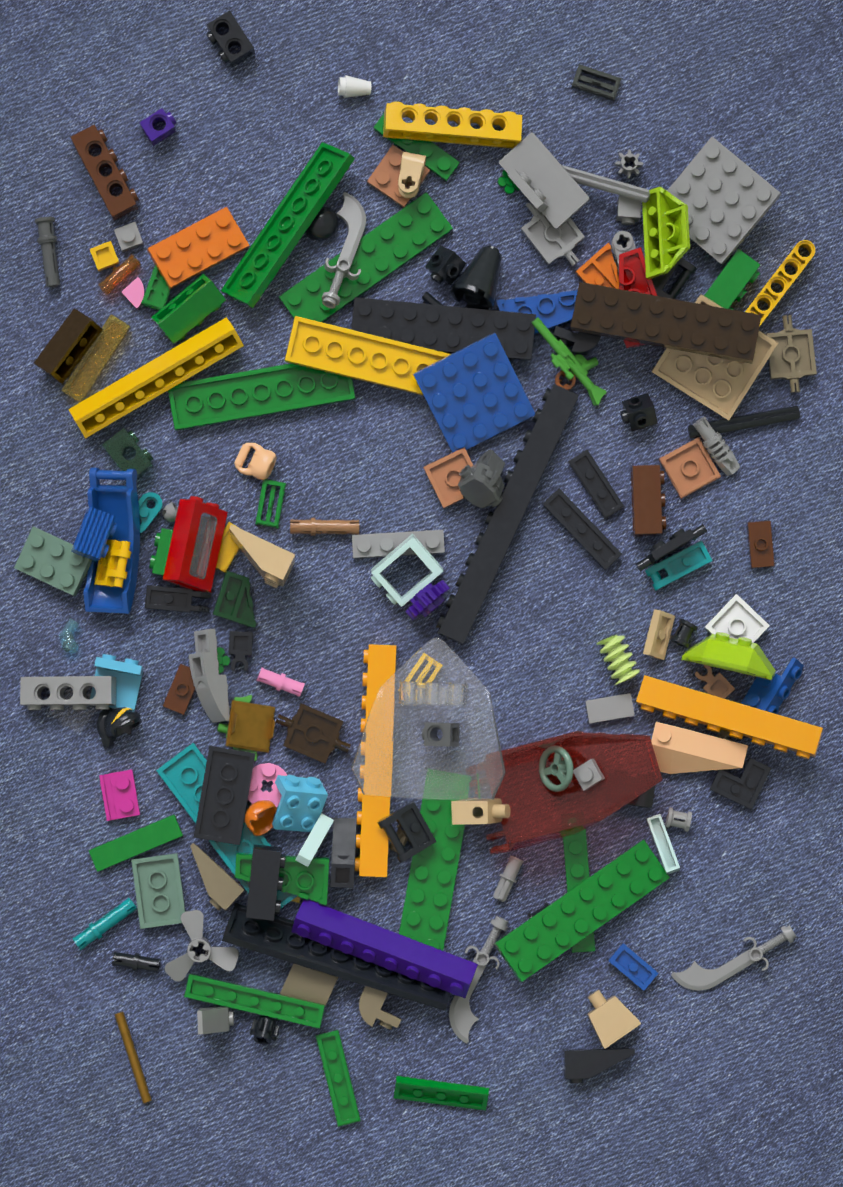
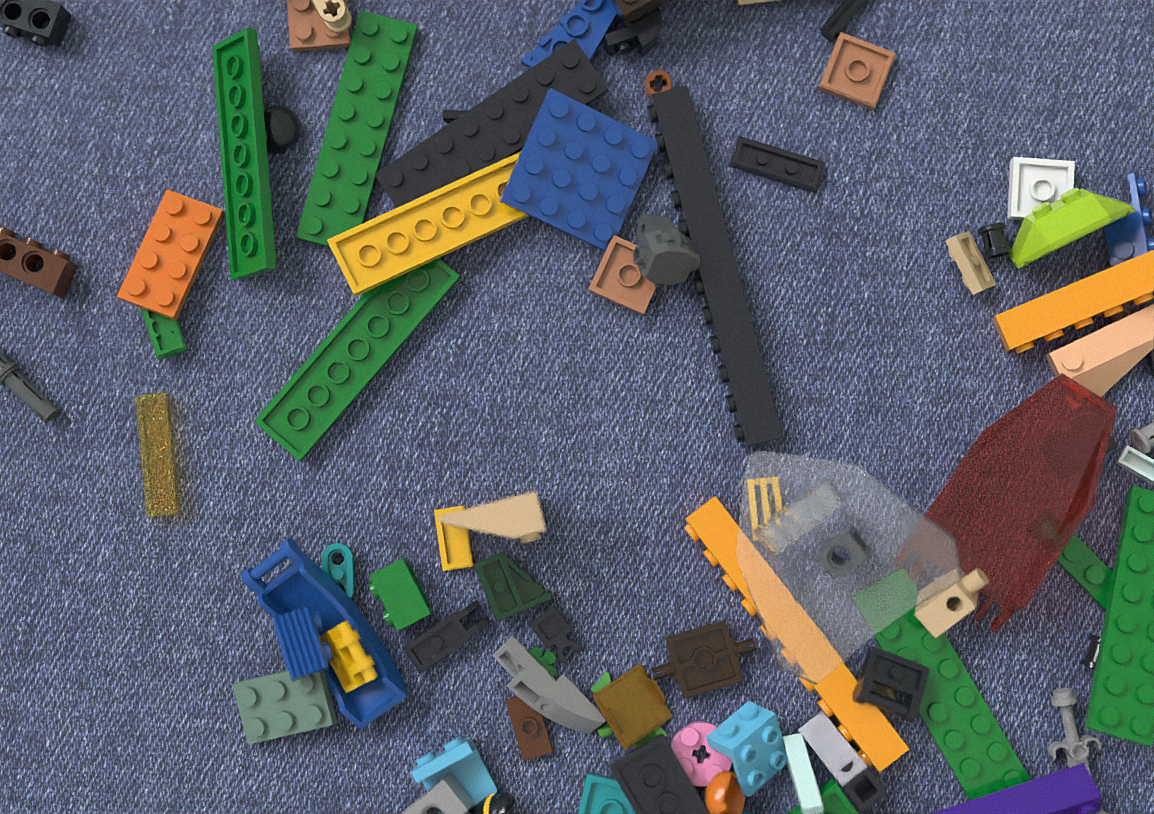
camera: 25 degrees left, 0 degrees up
(66, 637) = (363, 771): clear light blue arm -> none
(68, 346) = (116, 465): dark brown brick -> none
(104, 256) = (80, 341): yellow plate -> none
(119, 274) = (112, 348): clear orange pin -> none
(127, 440) = (254, 519): clear green brick -> none
(128, 236) = (90, 302): light grey plate -> none
(134, 293) = (143, 354): bright pink tile -> none
(154, 135) = (35, 175): dark purple brick -> none
(156, 377) = (234, 424): yellow brick -> none
(170, 512) = (367, 549): light grey hinge -> none
(188, 309) = (212, 324): green brick -> none
(195, 544) = (418, 564): red piece -> none
(260, 464) = (418, 424): light nougat piece -> none
(267, 523) = (474, 478): green tile -> none
(280, 682) = (625, 633): bright pink pin -> none
(324, 526) = (544, 428): medium nougat pin -> none
(355, 219) = (309, 95): light grey sword -> none
(383, 543) = (627, 389): light grey plate -> none
(413, 543) = (641, 442): light aqua window -> none
(427, 600) = (708, 421): dark purple gear -> none
(445, 266) = (440, 66): black brick -> none
(479, 280) = (488, 54): black cone -> none
(507, 878) = (1029, 642): light grey axle -> none
(560, 767) = (992, 482): sand green piece -> none
(566, 361) = (646, 61): bright green piece -> none
(582, 529) = (802, 220): black plate -> none
(588, 774) = (1027, 465): light grey plate -> none
(609, 708) = (983, 379): light grey tile -> none
(619, 658) = (953, 320): yellowish green piece -> none
(638, 412) = (761, 54): black brick -> none
(647, 500) = (843, 137): reddish brown brick -> none
(663, 549) = (911, 155): black plate -> none
(679, 565) = (930, 175): teal plate -> none
(716, 446) = (868, 25): light grey hinge -> none
(716, 685) = (1071, 266): medium nougat plate -> none
(760, 544) = (992, 89): reddish brown plate -> none

